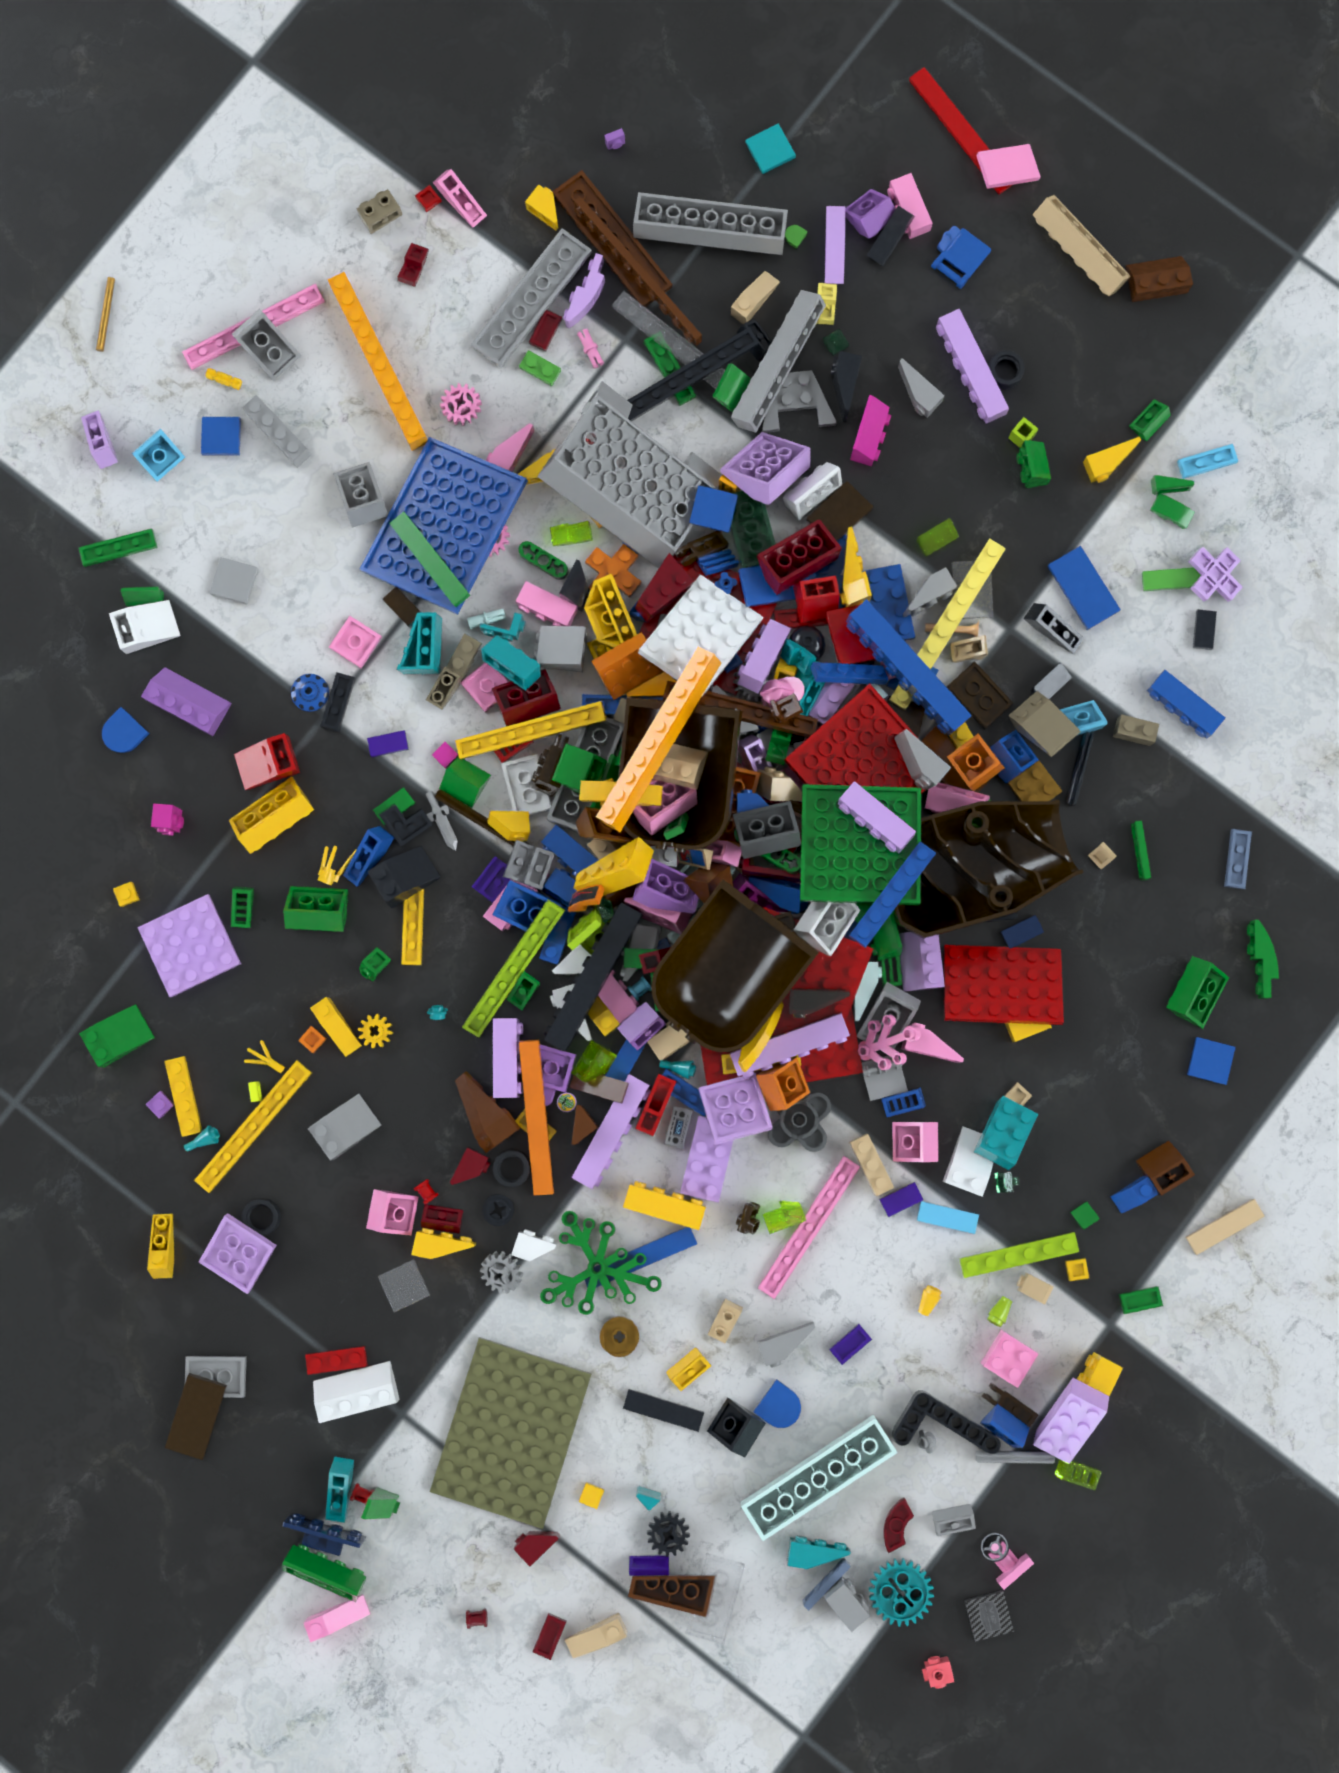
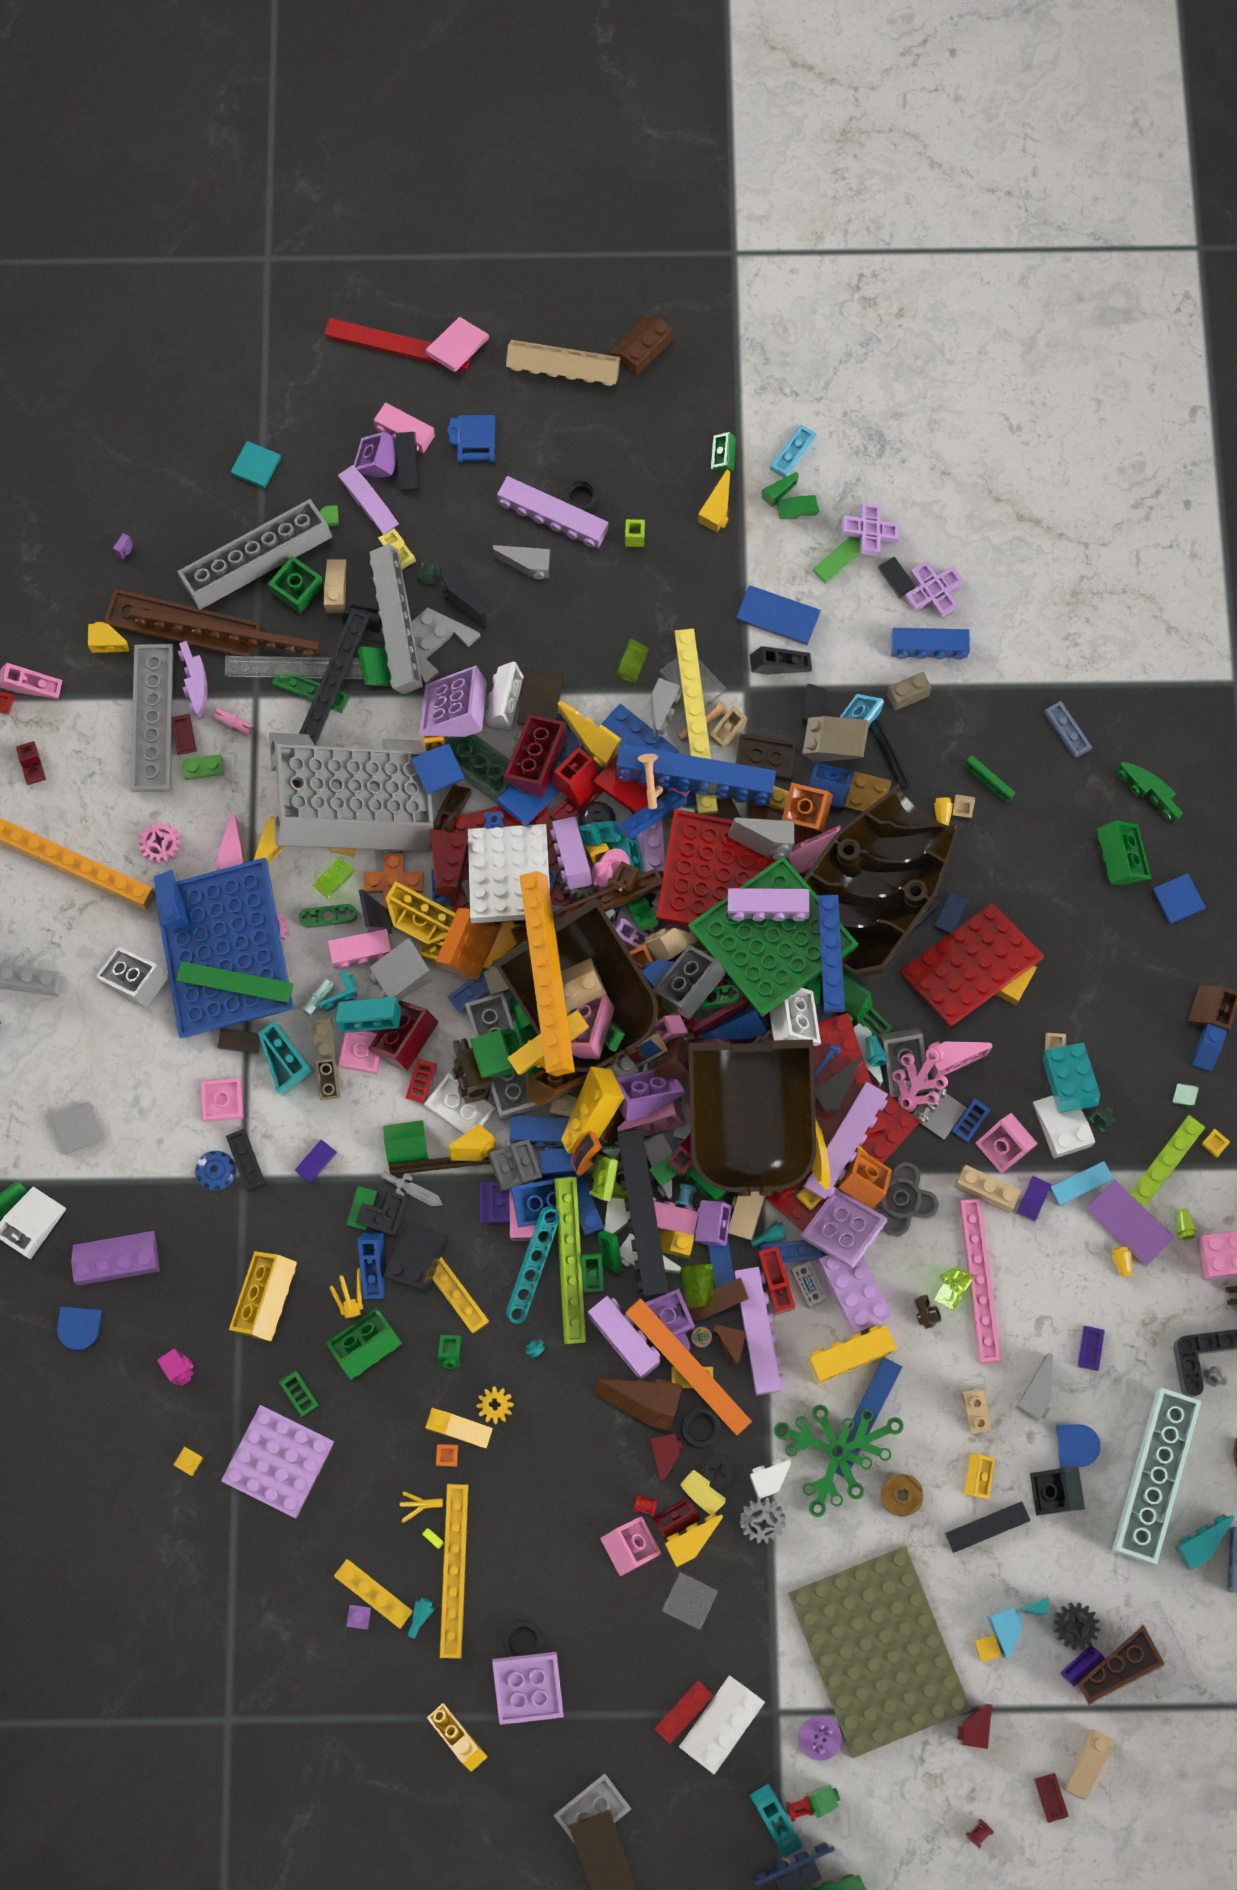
camera: 45 degrees left, 10 degrees down
(116, 1036) = (275, 1587): green slope -> none
(267, 761) = (224, 1254): slope -> none
(344, 1127) = (533, 1506): light grey slope -> none
(409, 1462) = (816, 1748): none -> medium lavender plate
(430, 457) = (169, 901): none -> blue slope
(445, 755) = (371, 1133): dark pink tile -> none
(473, 1211) = (699, 1490): none -> light yellow slope
(484, 952) = (529, 1264): none -> teal beam
(531, 730) = (429, 1056): yellow plate -> none
(548, 985) = (610, 1251): none -> green tile
(615, 1494) = (1006, 1629): none -> medium azure slope
(716, 560) = (470, 808): blue tile -> none
(723, 273) = (296, 584): none -> green brick
(838, 968) = (834, 1049): none -> blue piece
(869, 995) = (875, 1052): none -> teal cone
(871, 432) = (514, 619): dark pink slope -> none
(875, 630) = (652, 791): none -> light nougat piece
(920, 962) = (894, 997): lavender slope -> none
(958, 1277) = (1130, 1222): none -> medium lavender tile
(1034, 464) = (662, 550): green slope -> none
(1034, 1288) = (1196, 1182): tan slope -> none
(1082, 847) = (943, 810): none -> yellow cone
(1226, 662) = (934, 589): none -> lavender plate

